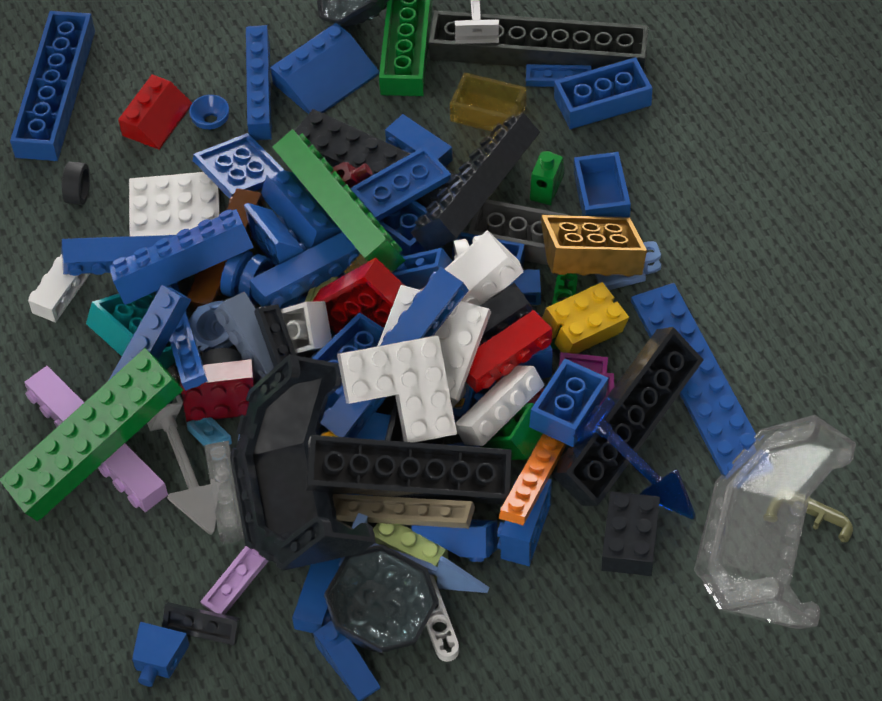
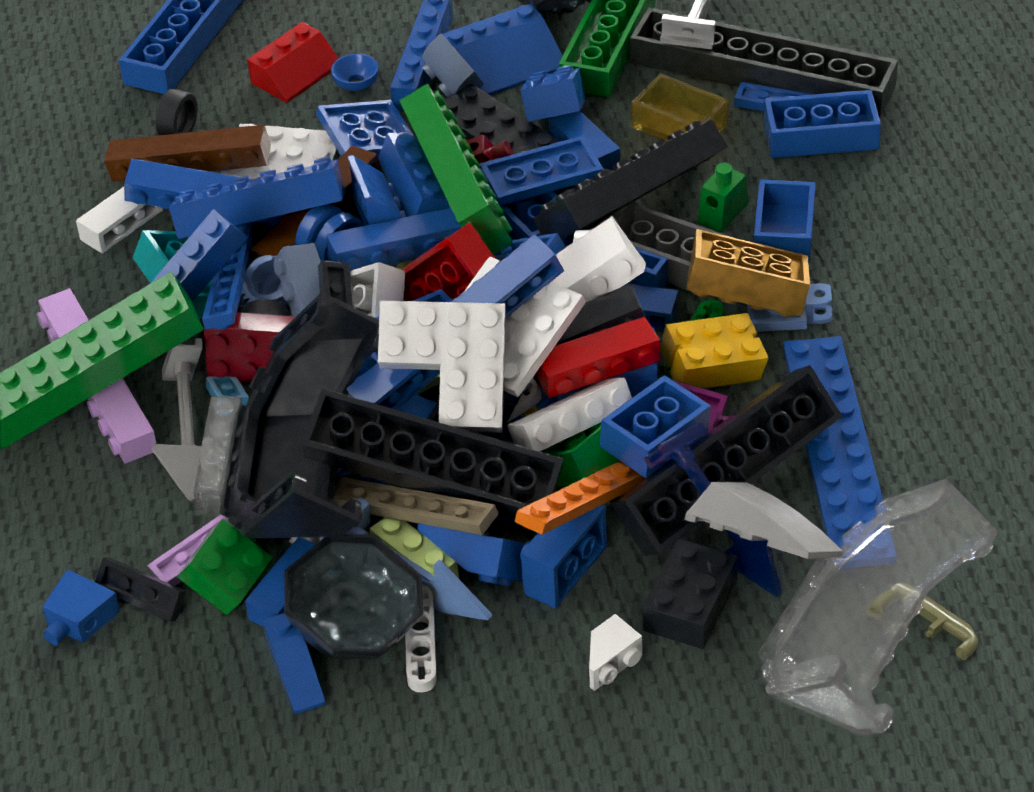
camera: 15 degrees right, 10 degrees down
(99, 217) = (194, 150): none -> reddish brown brick
(266, 592) = (224, 567): none -> green brick
(292, 98) = (449, 66): none -> sand blue brick
(384, 108) = (553, 93): none -> blue brick
(585, 594) = (612, 650): none -> white slope
(675, 465) = (761, 517): none -> light grey wedge

